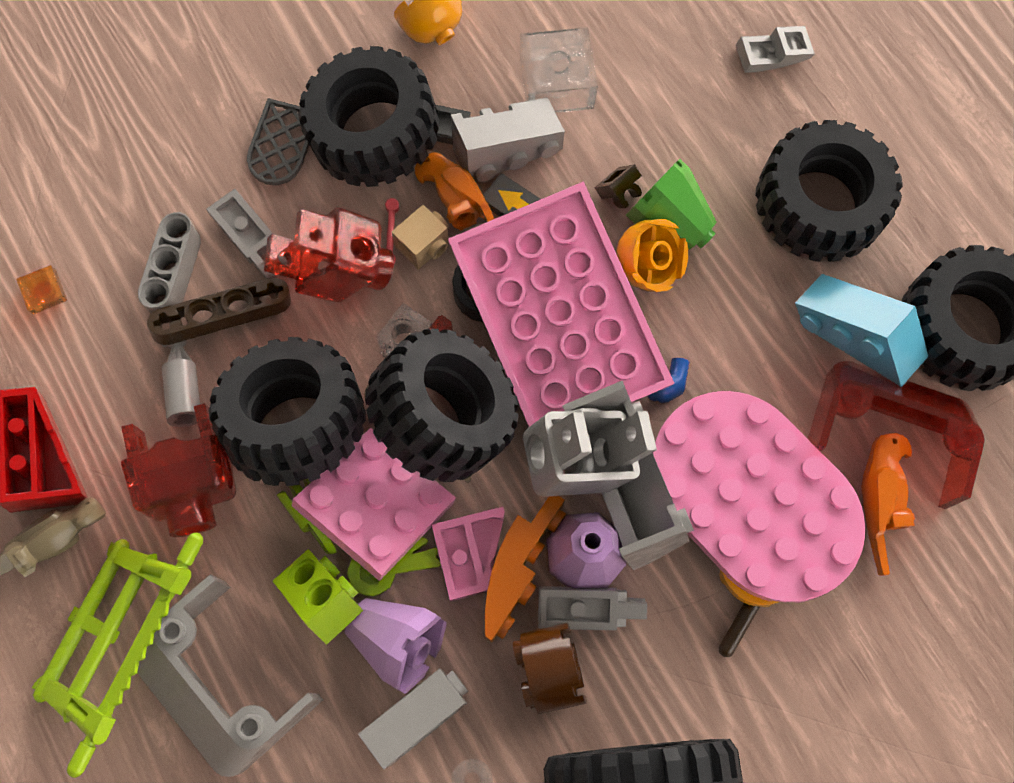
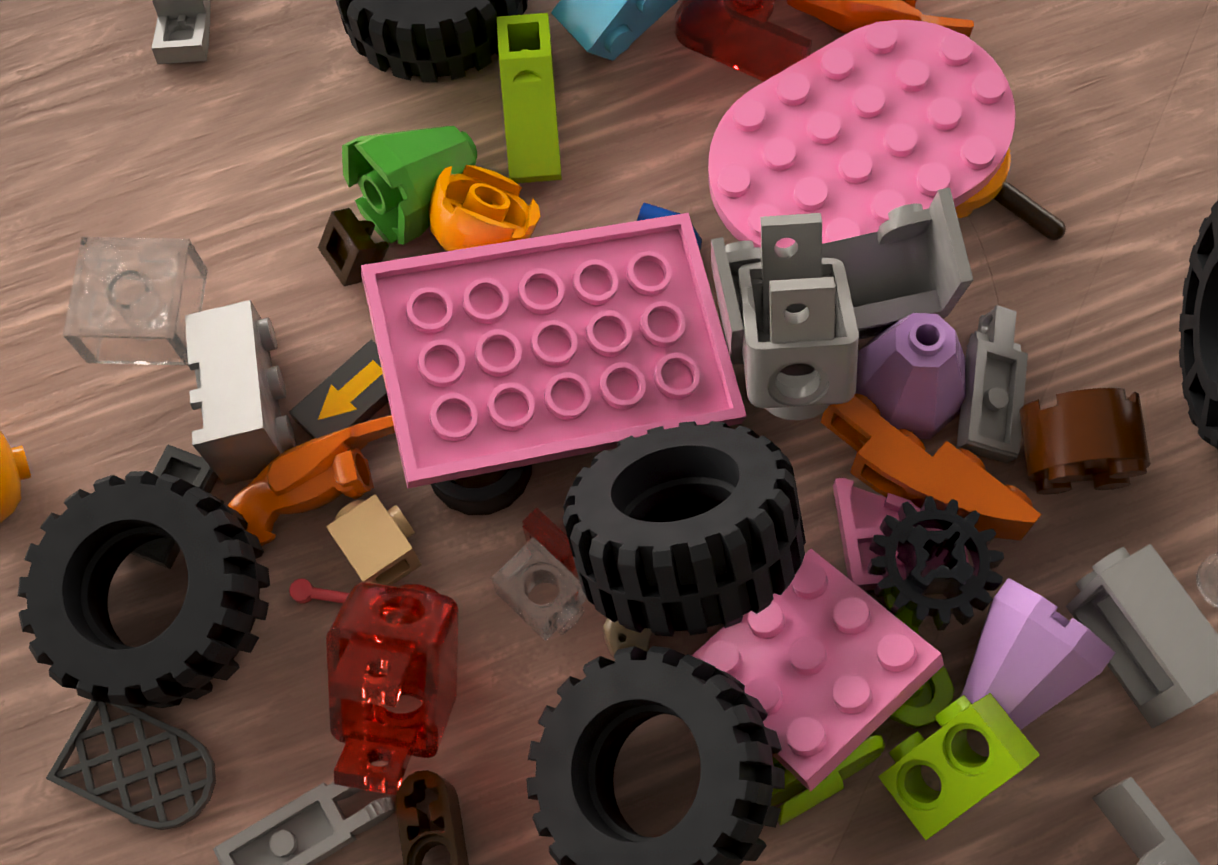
camera: 75 degrees left, 5 degrees down
(457, 555) = (952, 579): none -> black gear
(752, 271) = (529, 98): none -> lime slope

